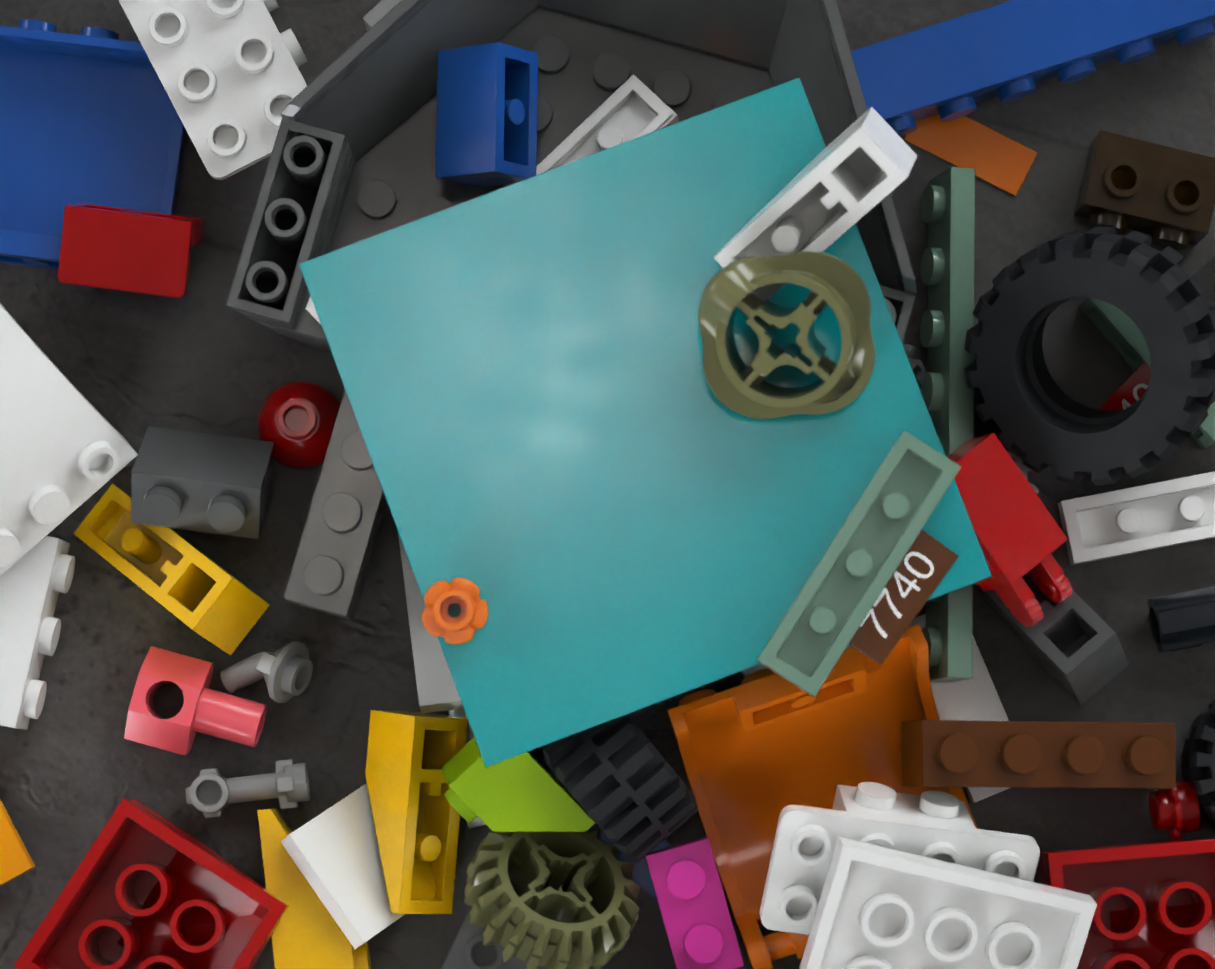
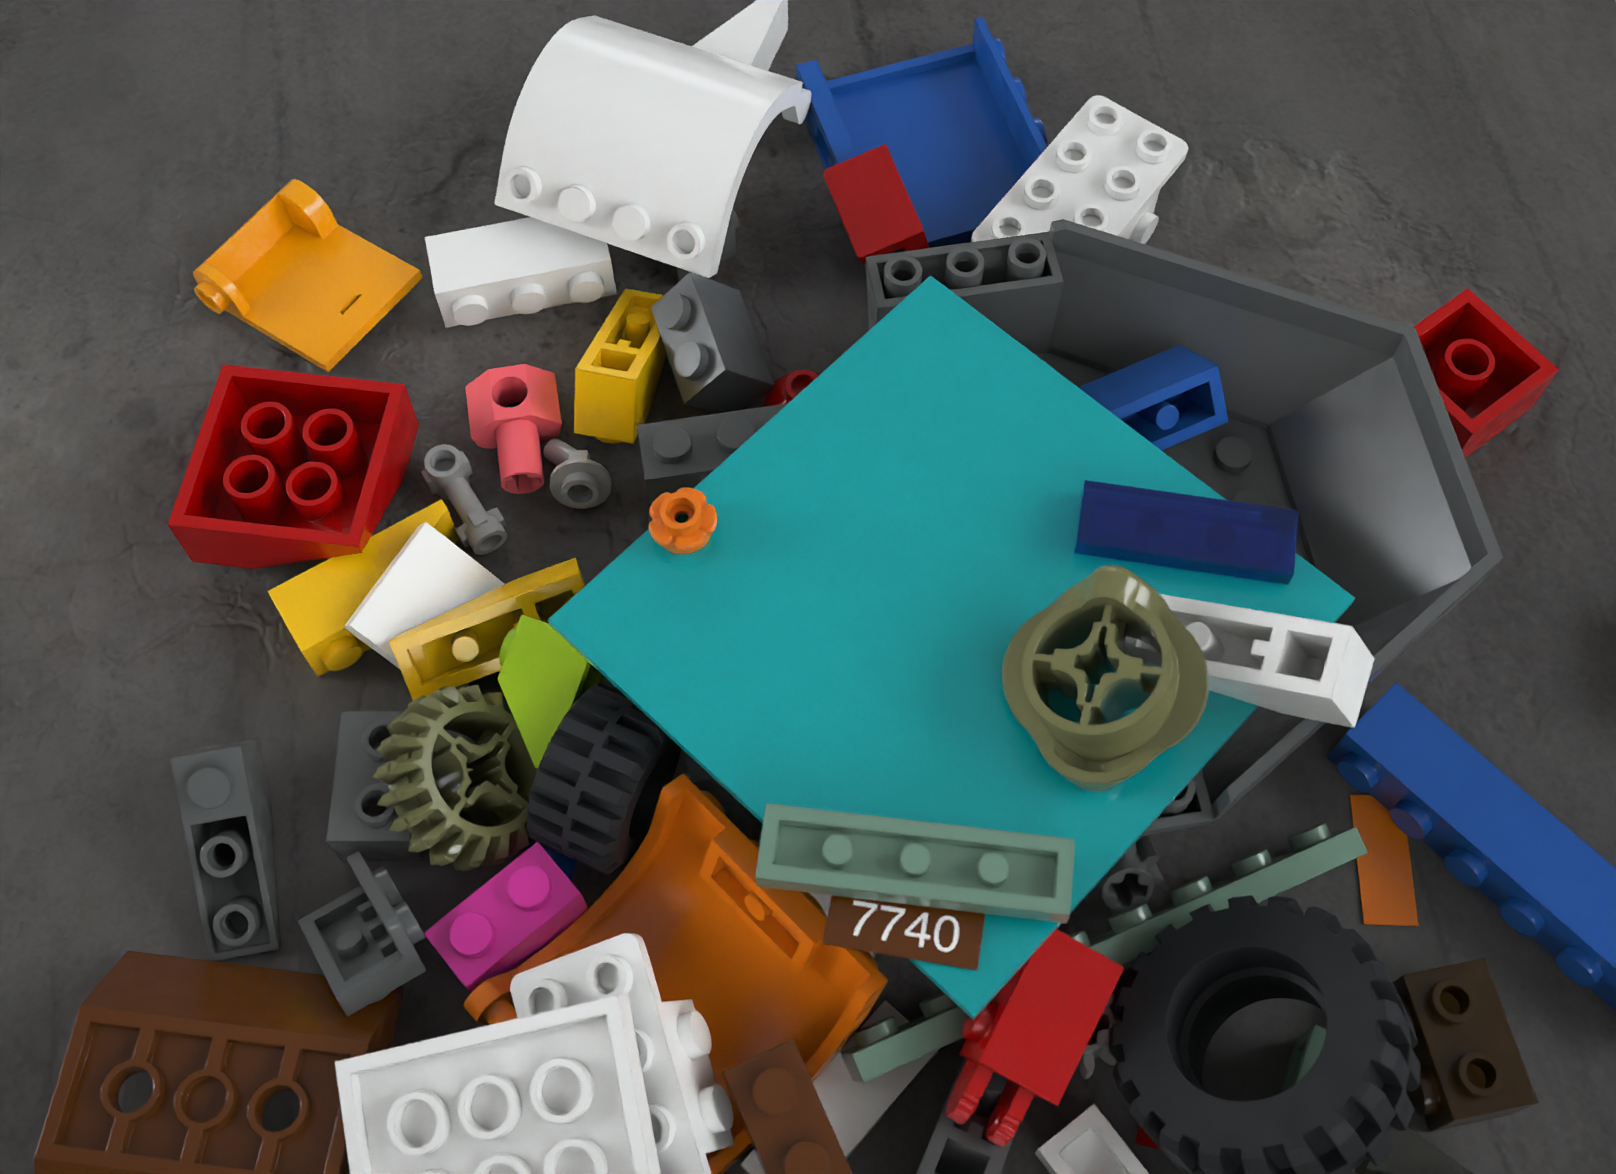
camera: 65 degrees right, 20 degrees down
(676, 185) = (1187, 532): none -> clear blue tile

